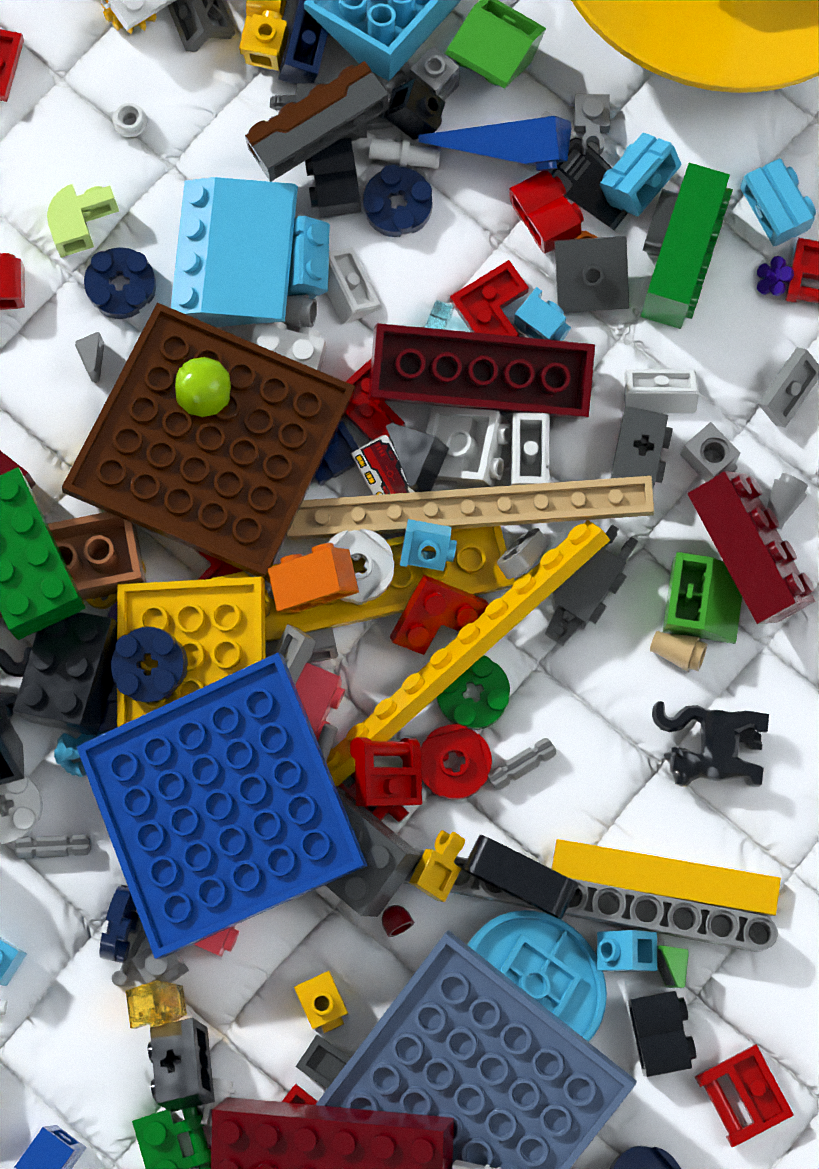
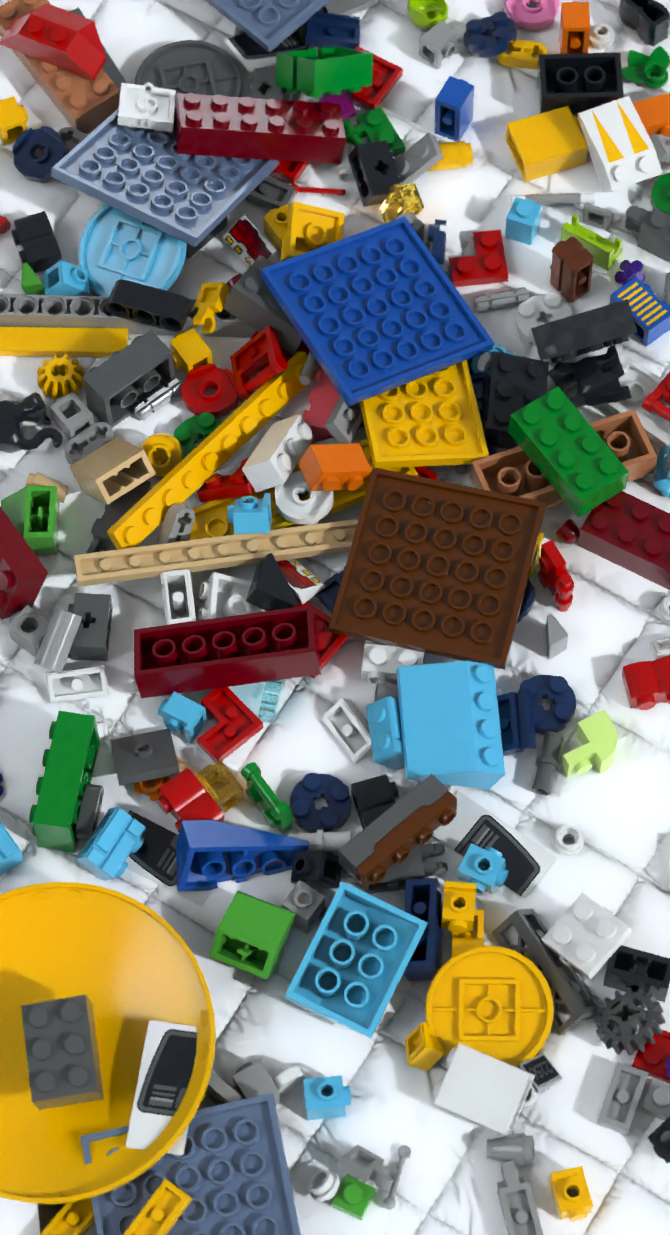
camera: 170 degrees right, 15 degrees down
(46, 493) = (568, 532): none -> dark red hinge
(56, 908) = (485, 266): none -> red plate
(72, 420) = (555, 576): none -> red plate
(77, 1090) = (455, 156): none -> yellow head
(118, 1079) = (418, 159): none -> light grey plate
(133, 207) = (547, 763): none -> dark grey pin
(157, 252) = (516, 721): none -> dark blue plate
(164, 679) = (456, 388): dark blue plate -> none
(202, 386) = (451, 597): lime hair -> none
(207, 128) = (476, 825): none -> sticker
(231, 88) = (483, 867): none -> medium azure brick
(236, 1060) = (319, 190): none -> red hinge
(284, 963) = (310, 229): none -> yellow plate
(369, 981) = (249, 242): none -> slope
(380, 630) = (278, 453): none -> white brick
(457, 197) = (259, 792): none -> green plate
(473, 817) = (189, 351): none -> yellow brick
(510, 217) = (219, 776): none -> clear yellow brick
(527, 671) = (163, 452): none -> yellow plate
(558, 778) = (128, 378): none -> dark grey brick
(593, 118) = (160, 897): light grey plate -> none
(593, 642) = (112, 470): none -> tan brick
(621, 718) = (87, 441): none -> light grey beam
(638, 733) = (71, 415): none -> light grey brick
(646, 823) = (60, 376): none -> yellow gear
(681, 420) = (58, 640): none -> light grey brick

